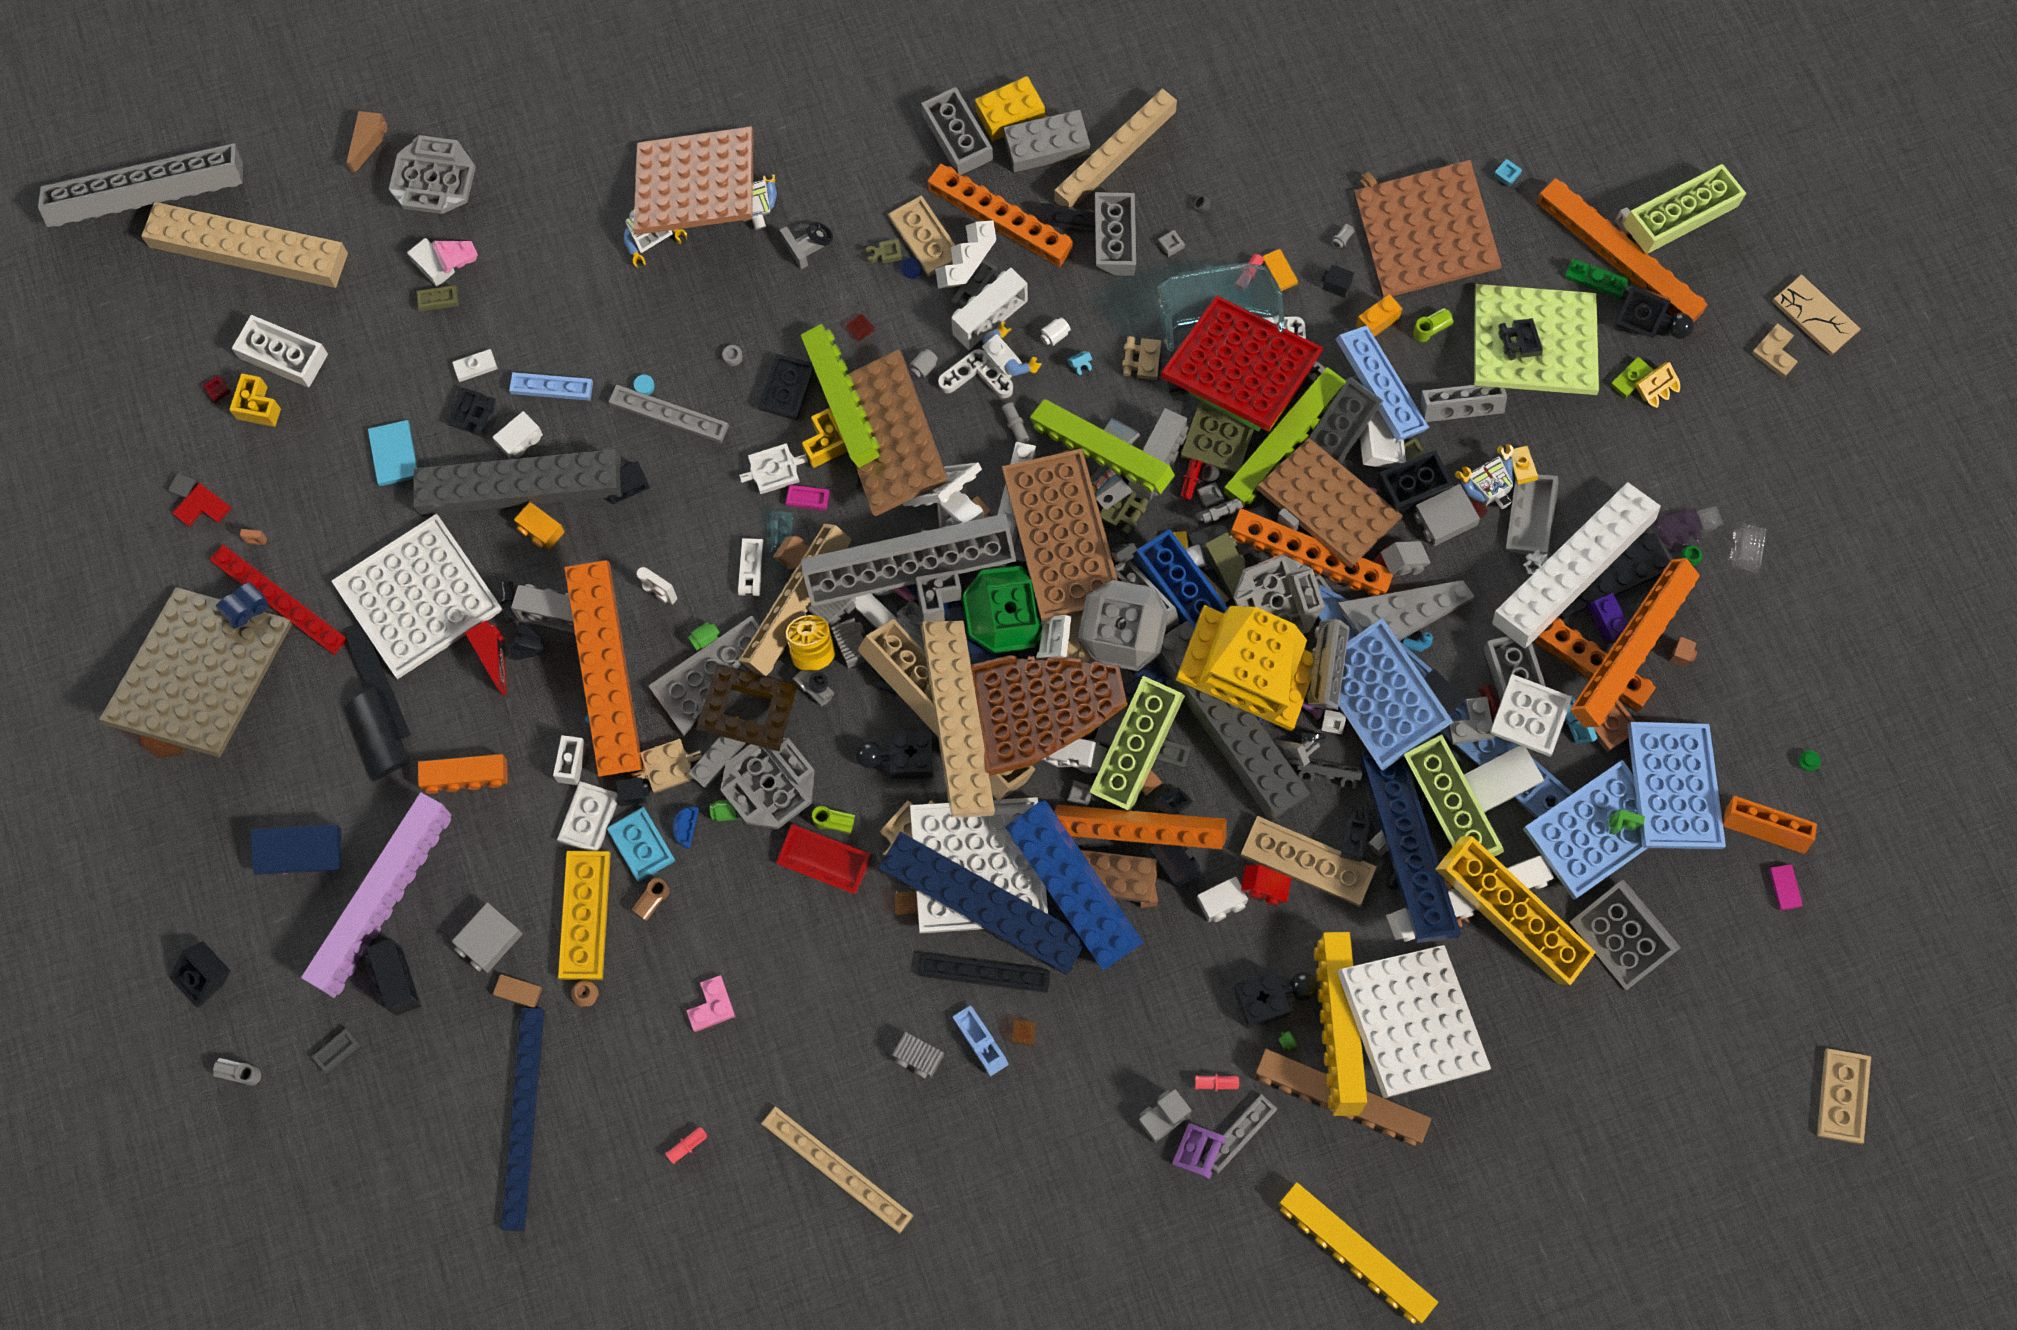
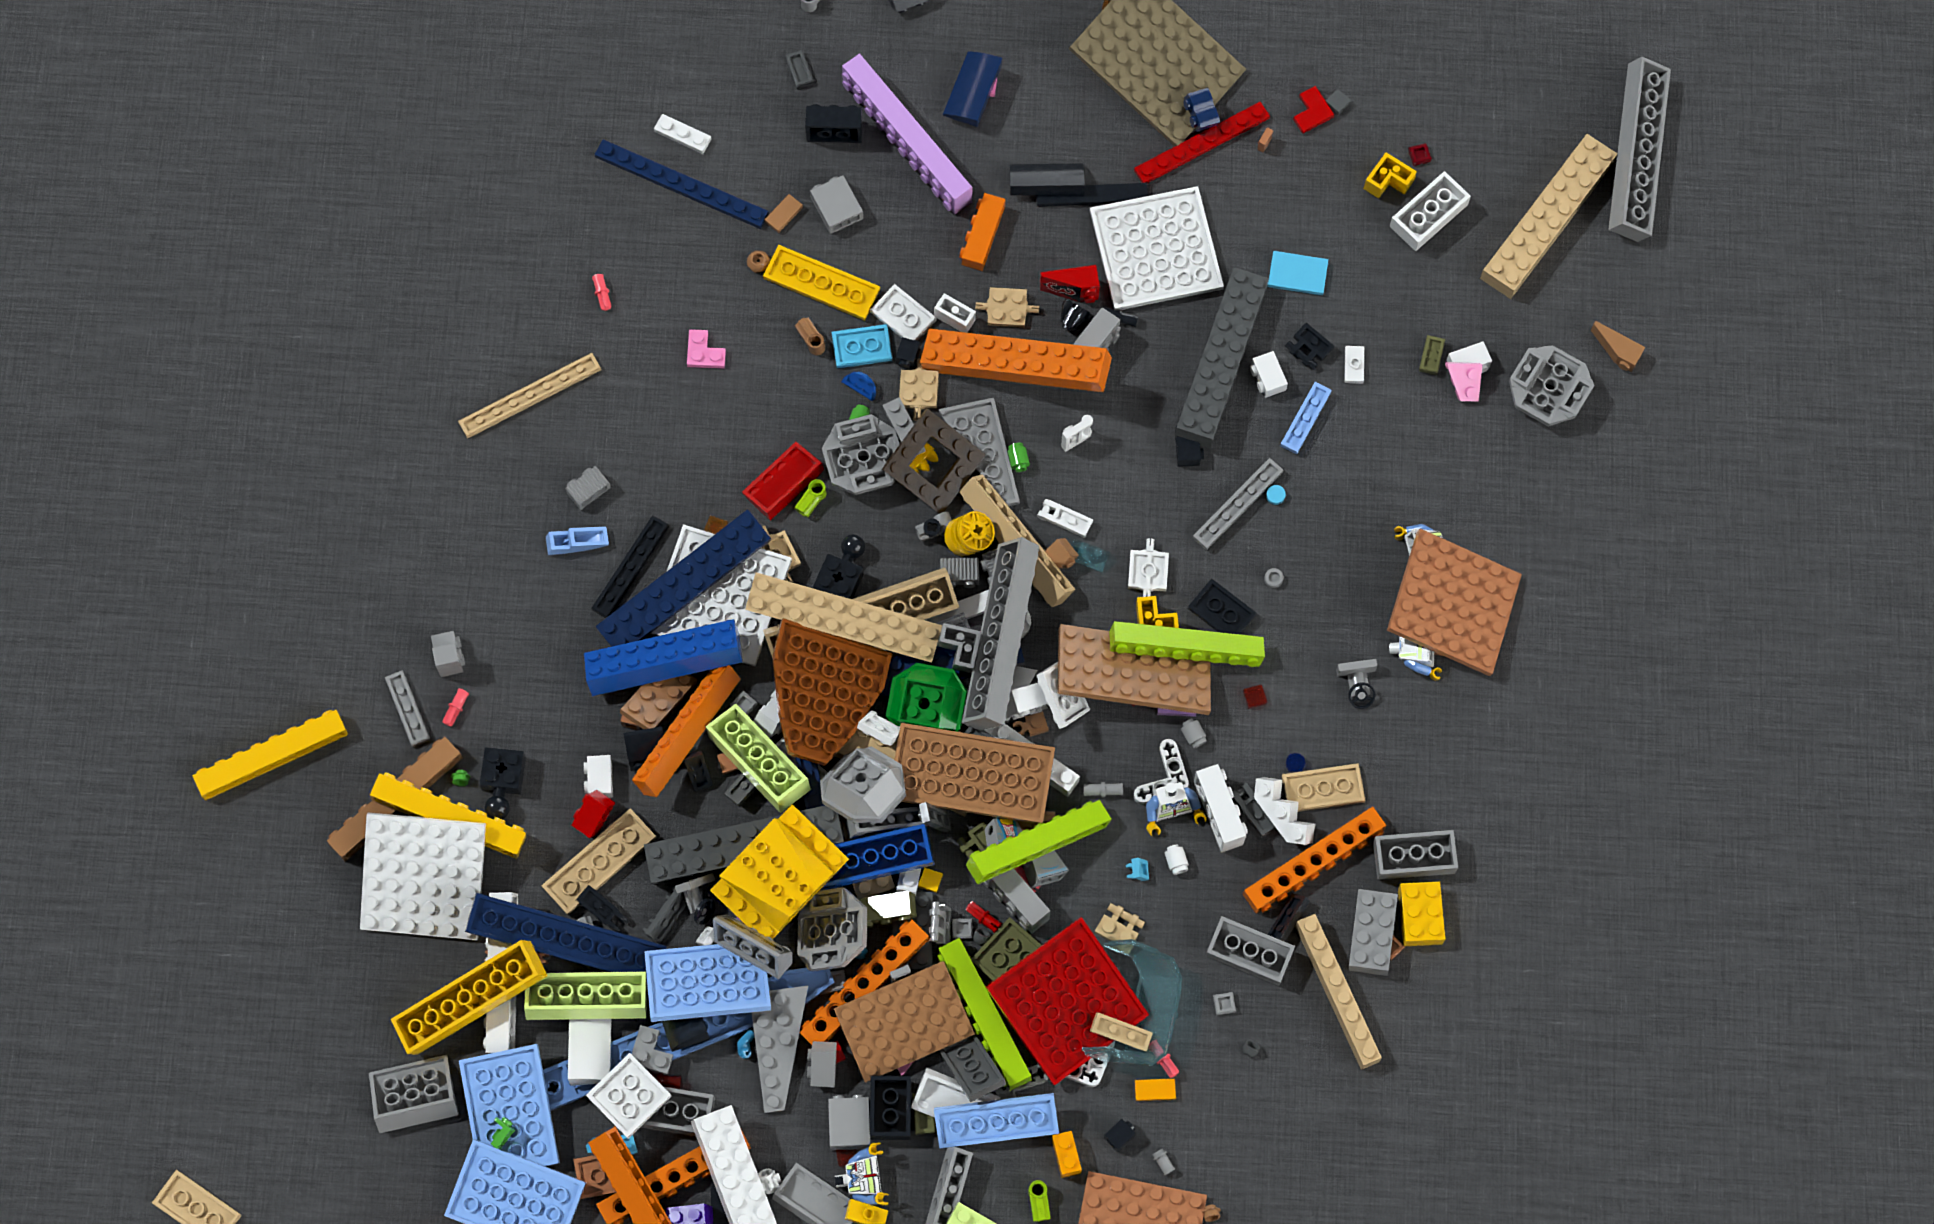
camera: 110 degrees right, 0 degrees up
(461, 1144) = (682, 134): none -> white plate
(539, 526) = (1177, 362): light orange brick -> none
(540, 716) = (1007, 307): none -> tan plate
(807, 497) = (1110, 589): dark pink tile -> none
(888, 251) = (1319, 747): olive plate -> none
(1023, 1032) = (567, 576): clear orange plate -> none
(1193, 1147) = (412, 664): medium lavender plate -> none
(1247, 307) = (1121, 1032): none -> tan plate

